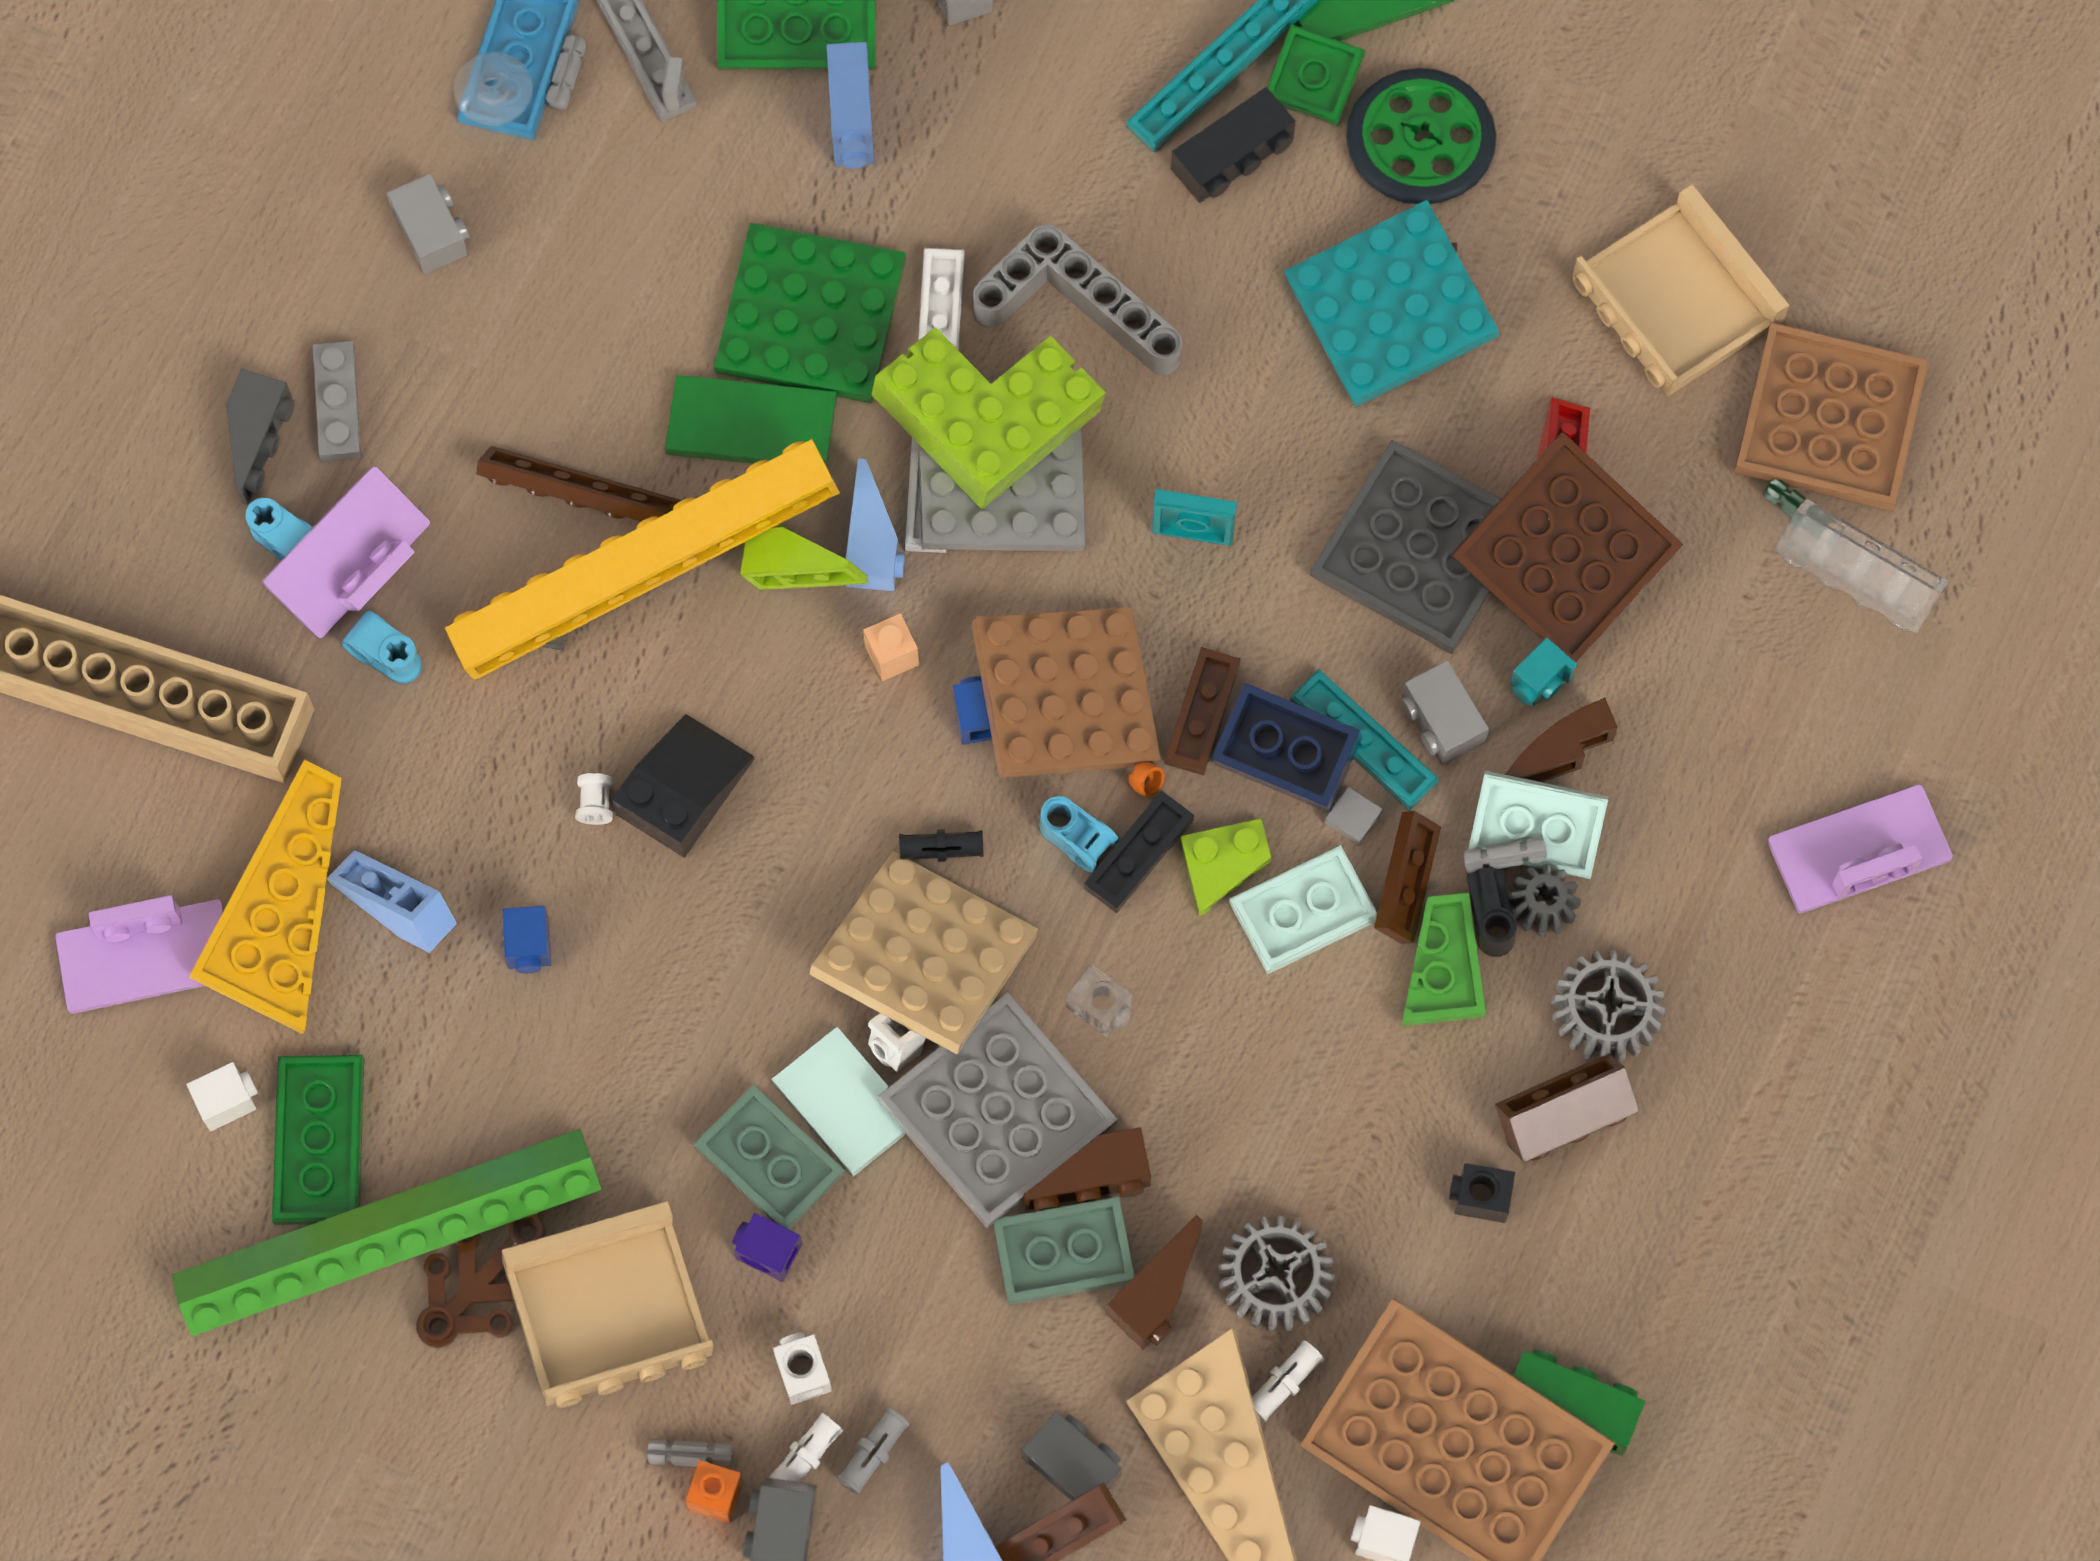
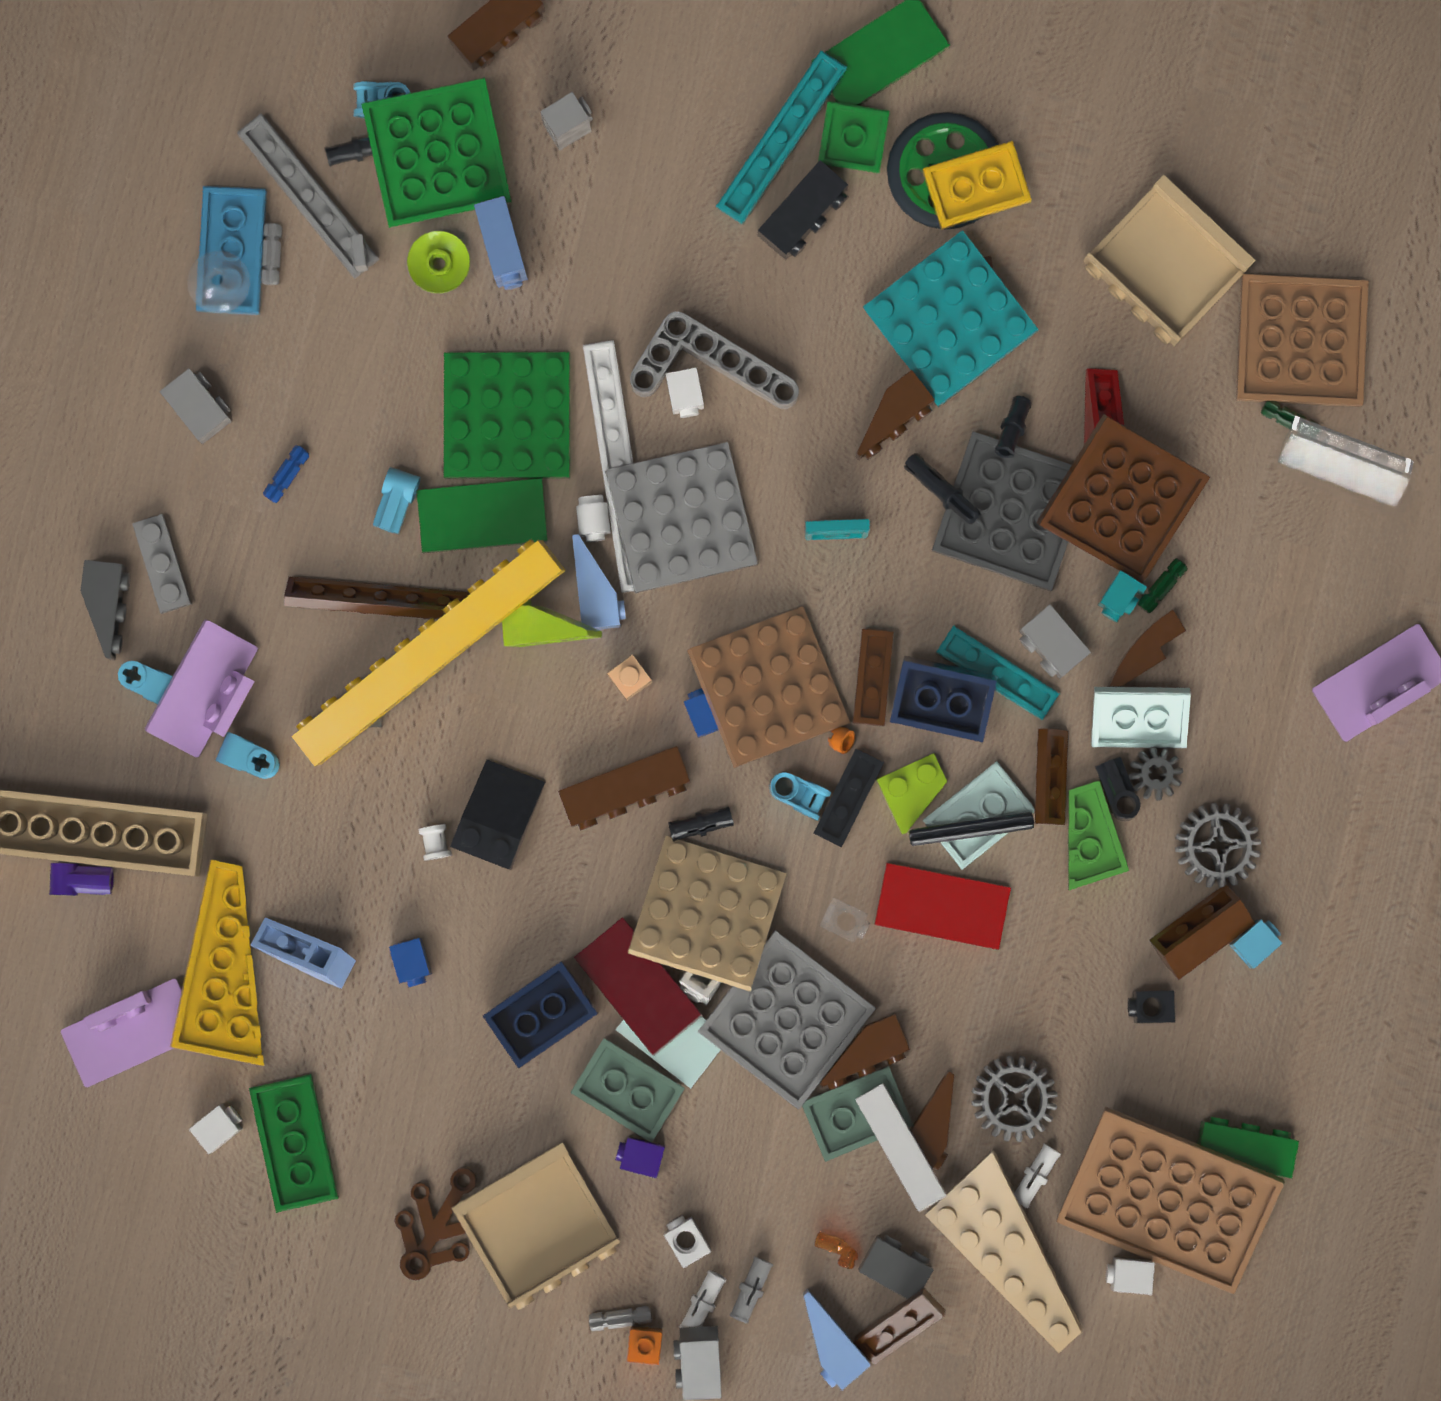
camera: 10 degrees left, 15 degrees up
(121, 750) = (75, 879): none -> dark purple piece
(385, 1232) = (362, 1207): bright green brick -> none
(518, 326) = (286, 473): none -> blue axle
(651, 373) = (398, 492): none -> medium azure piece
(678, 1035) = (540, 1014): none -> dark blue brick
(768, 102) = (438, 246): none -> lime dish
(813, 1031) = (638, 988): none -> dark red tile
(853, 780) = (623, 787): none -> reddish brown brick
(889, 450) = (593, 518): none -> white brick
(984, 430) = (660, 497): lime piece -> none
(1003, 1419) = (839, 1246): none -> clear orange arm
(1037, 319) = (685, 392): none -> white brick
(1112, 1297) = (901, 1147): none -> white tile
(1232, 1012) = (942, 906): none -> red tile
(1290, 918) = (971, 829): none -> black axle
(1303, 395) = (899, 405): none -> reddish brown slope
(1347, 508) = (949, 495): none -> black axle
(1353, 816) = (1001, 735): light grey tile -> none
(1444, 443) = (1013, 427): none -> black pin
(1456, 155) = (976, 185): none -> yellow tile
(1505, 854) = (1121, 746): light grey axle -> none
(1598, 675) = (1162, 585): none -> dark green axle
(1636, 1139) = (1256, 943): none -> medium azure brick

